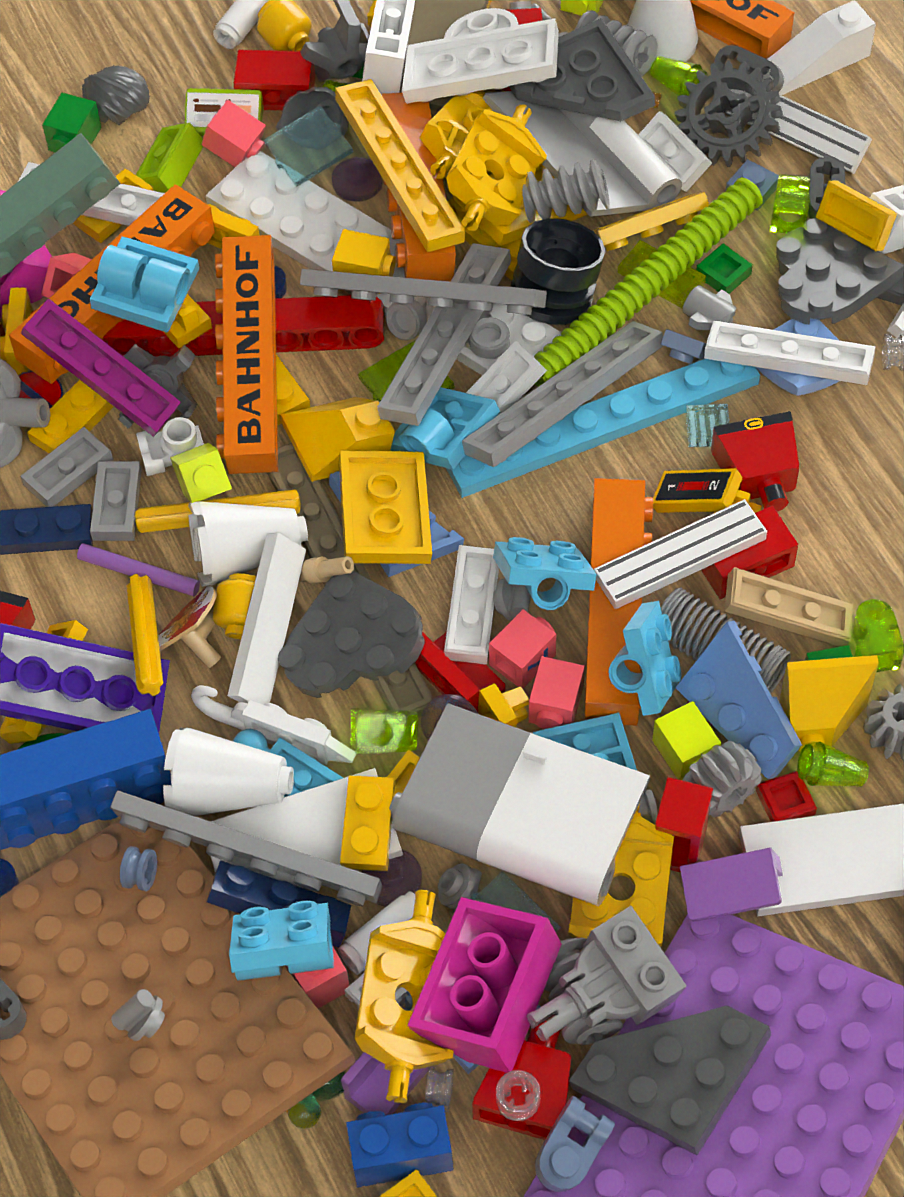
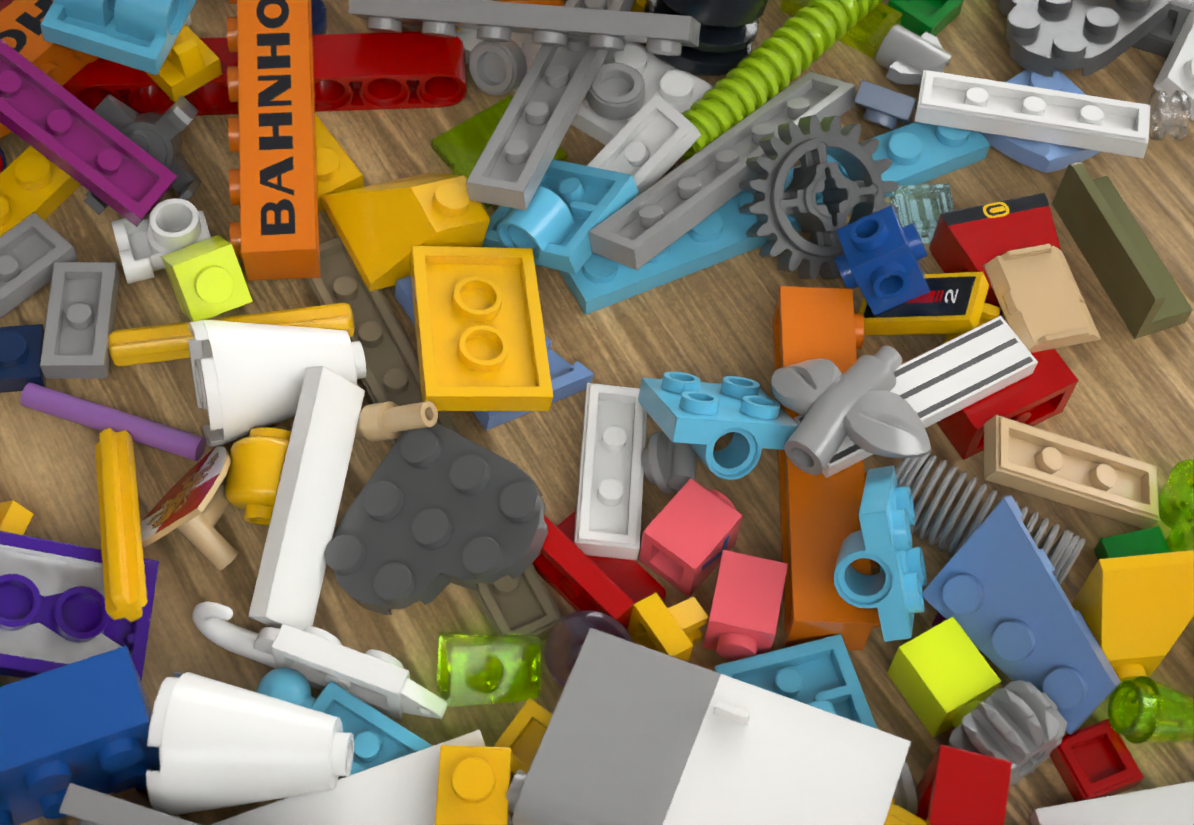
camera: 10 degrees left, 0 degrees up
(629, 560) = (848, 405): none -> light grey plant
(633, 429) = (772, 204): none -> dark grey gear
(667, 451) = (878, 249): none -> blue brick
(778, 487) = (1041, 298): none -> tan piece
(847, 454) = (1119, 253): none -> olive panel

